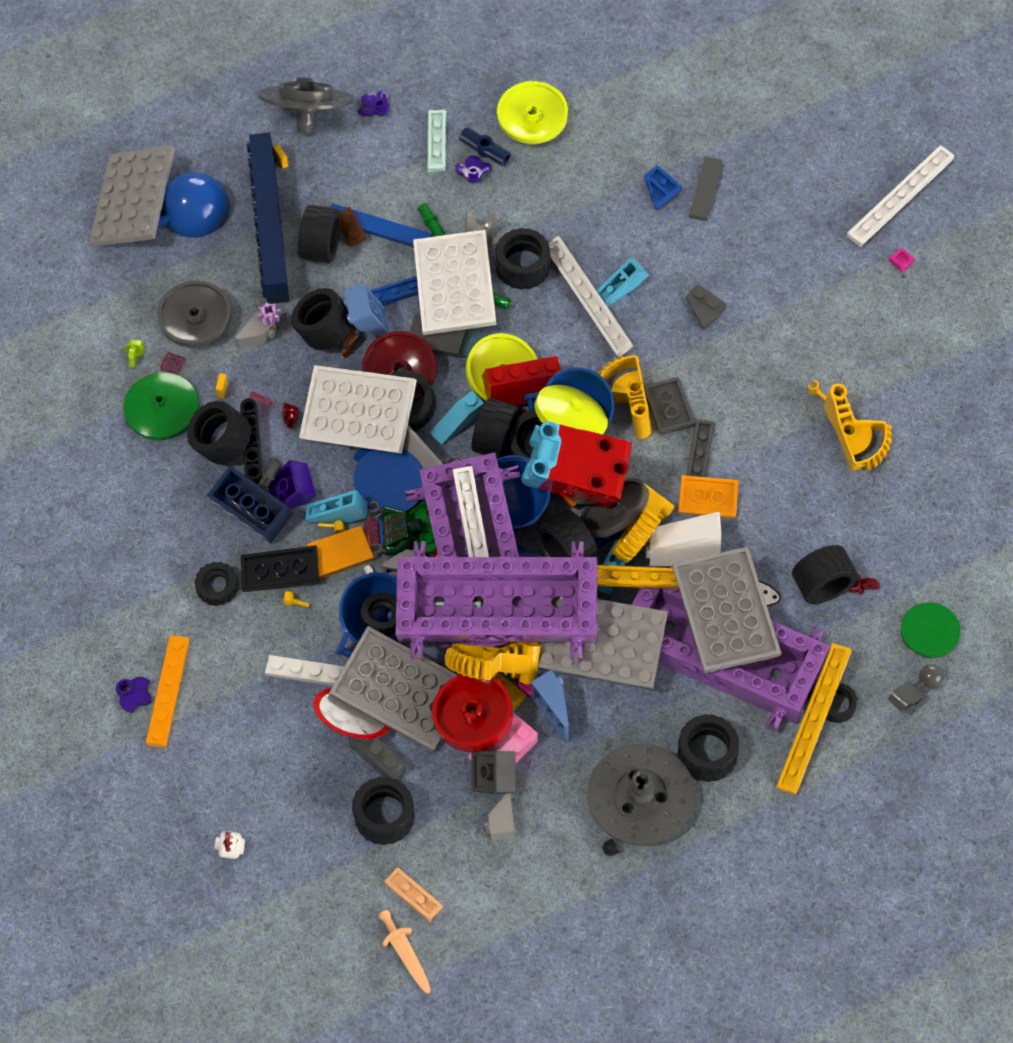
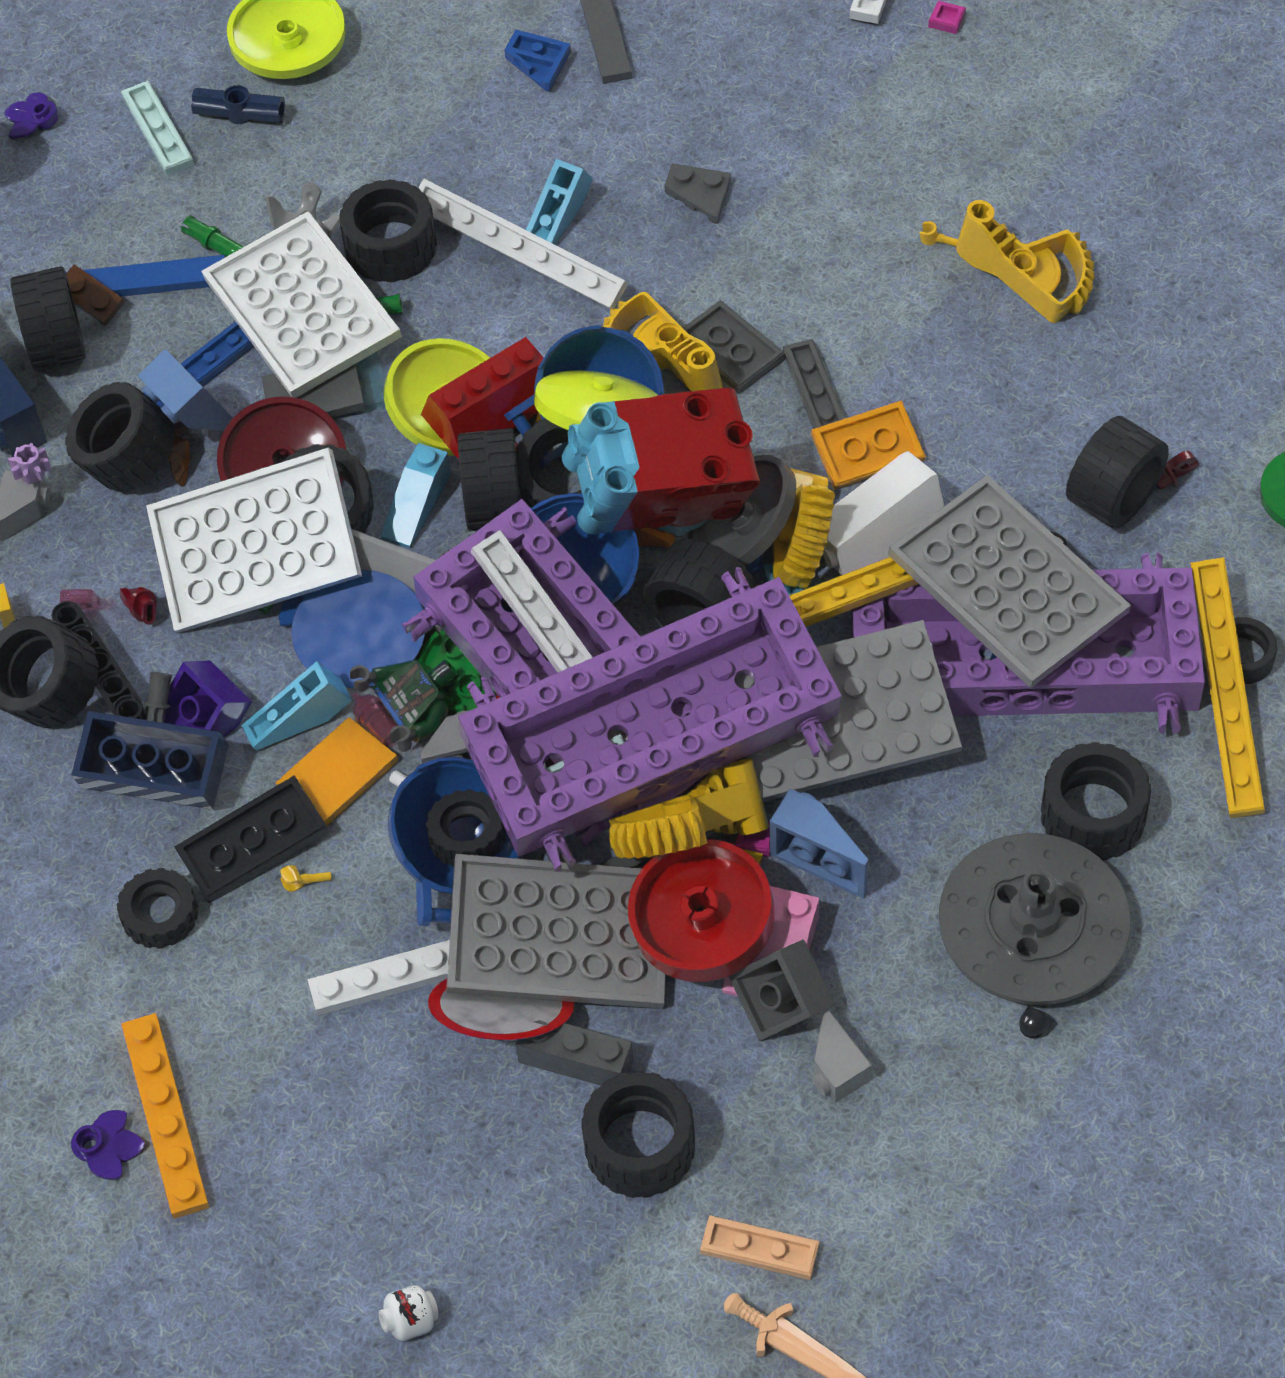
camera: 25 degrees left, 5 degrees down
(337, 526) = (311, 733): yellow hand -> none
(472, 168) = (236, 143): dark purple plate -> none

